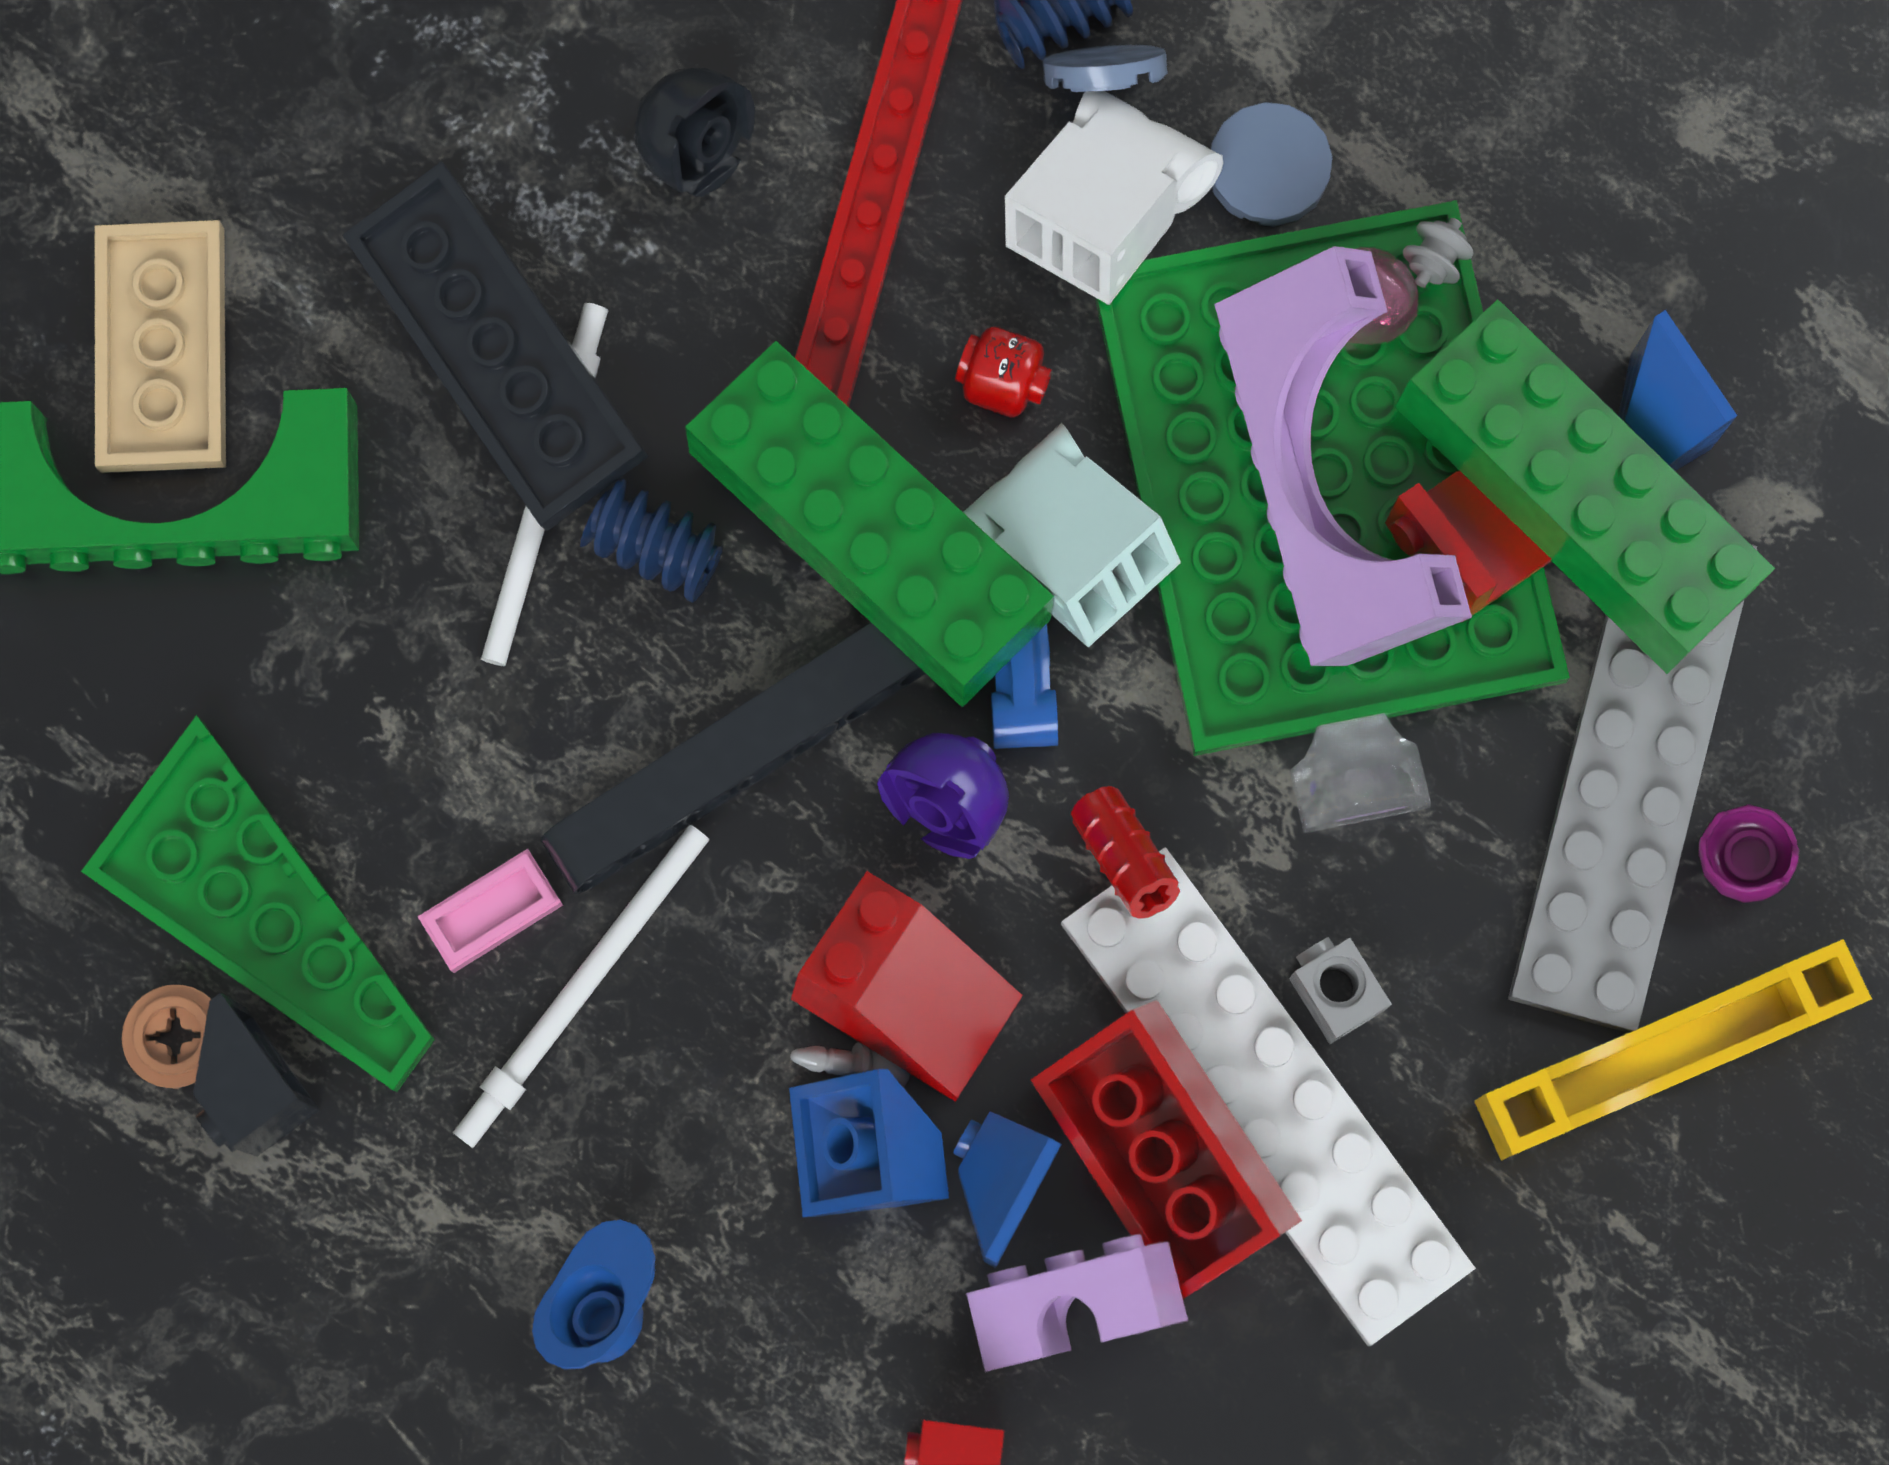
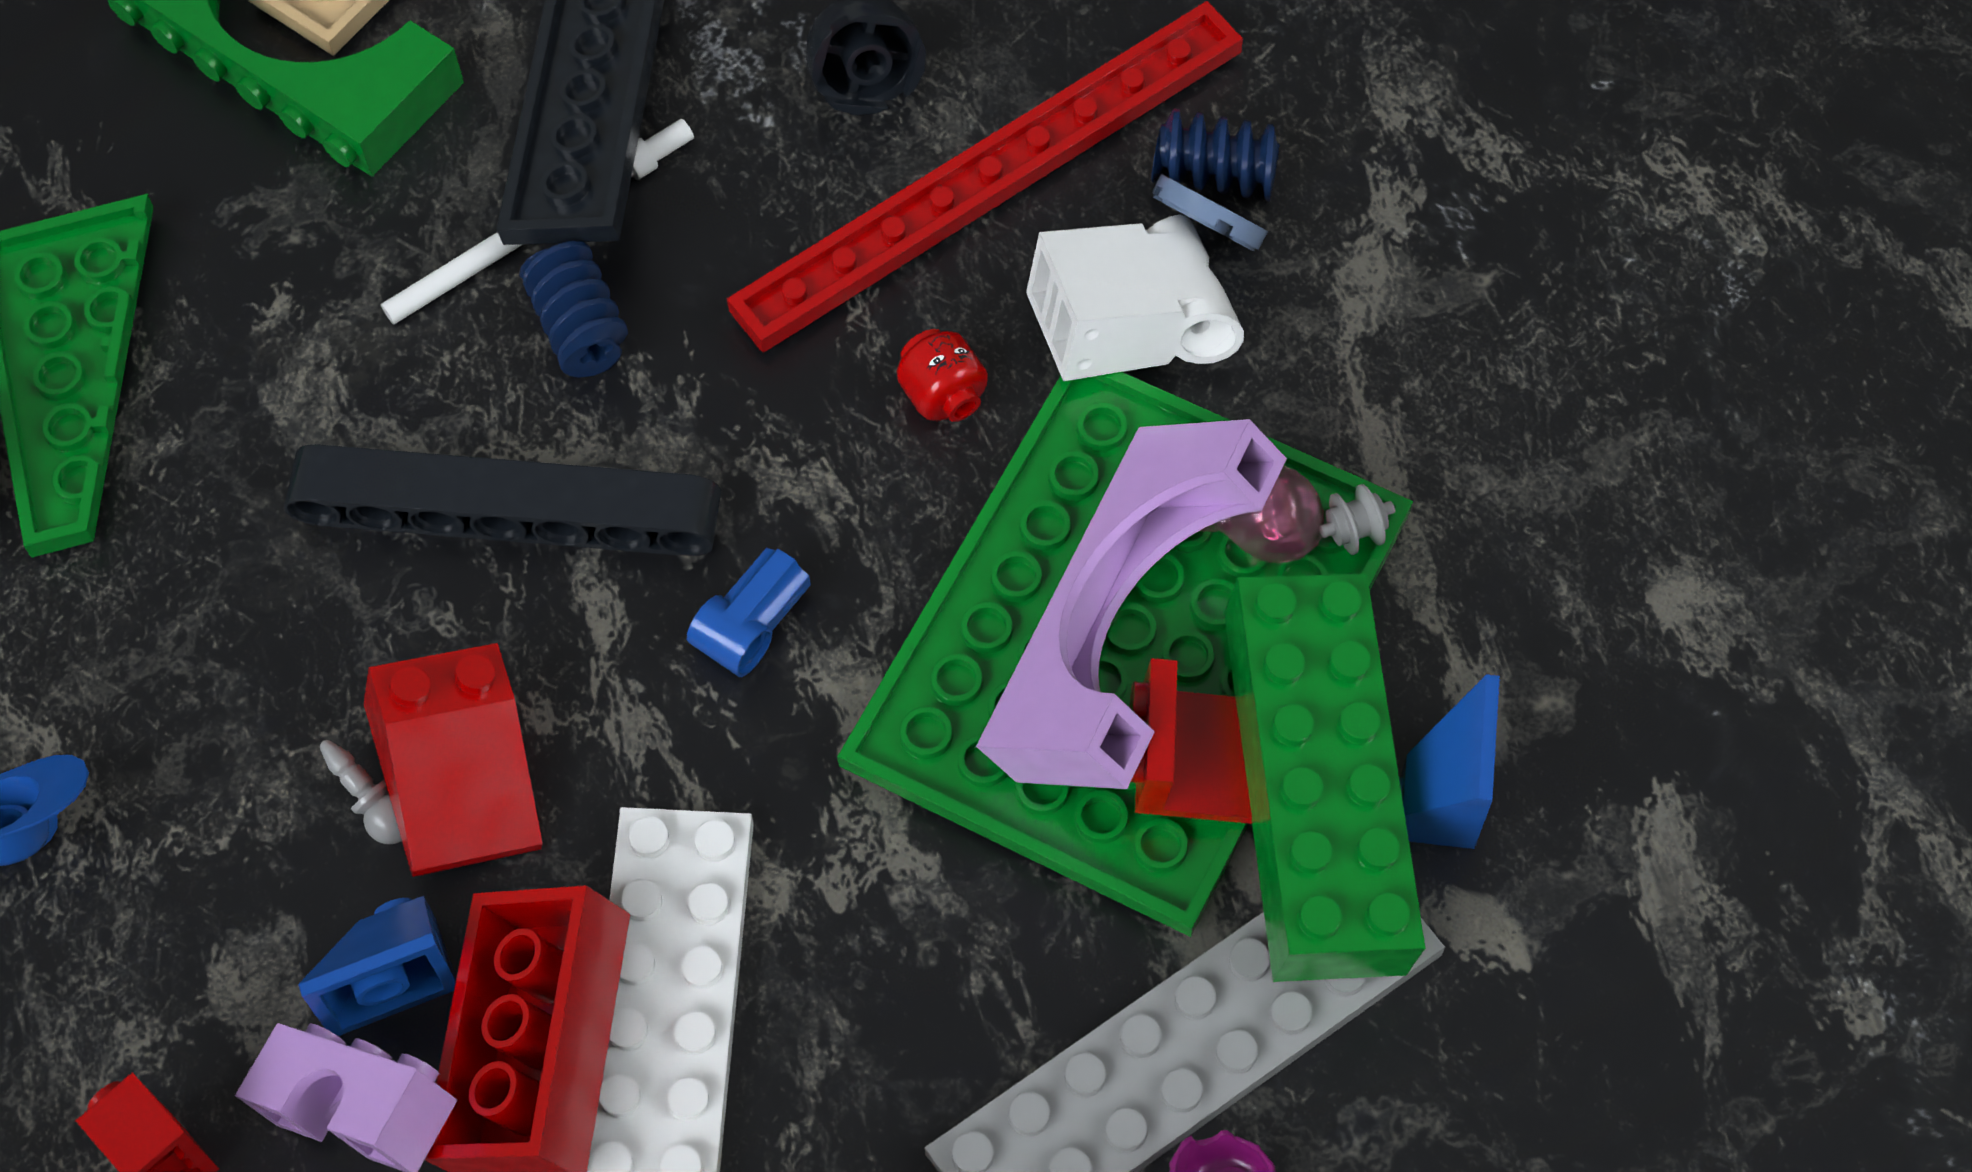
camera: 40 degrees right, 15 degrees down
(490, 911) = (219, 482): bright pink tile -> none
(503, 1086) = (107, 609): white bar -> none
(864, 1146) = (315, 859): blue slope -> none
(869, 523) = (730, 398): green brick -> none
(948, 788) = (621, 637): dark purple cylinder -> none
(1077, 534) = (878, 521): light aqua piece -> none
(1125, 852) = (709, 786): red axle -> none
(1272, 164) = (1288, 379): sand blue tile -> none
(1333, 1017) = (786, 1056): light grey brick -> none
(1358, 774) = (955, 877): clear slope -> none

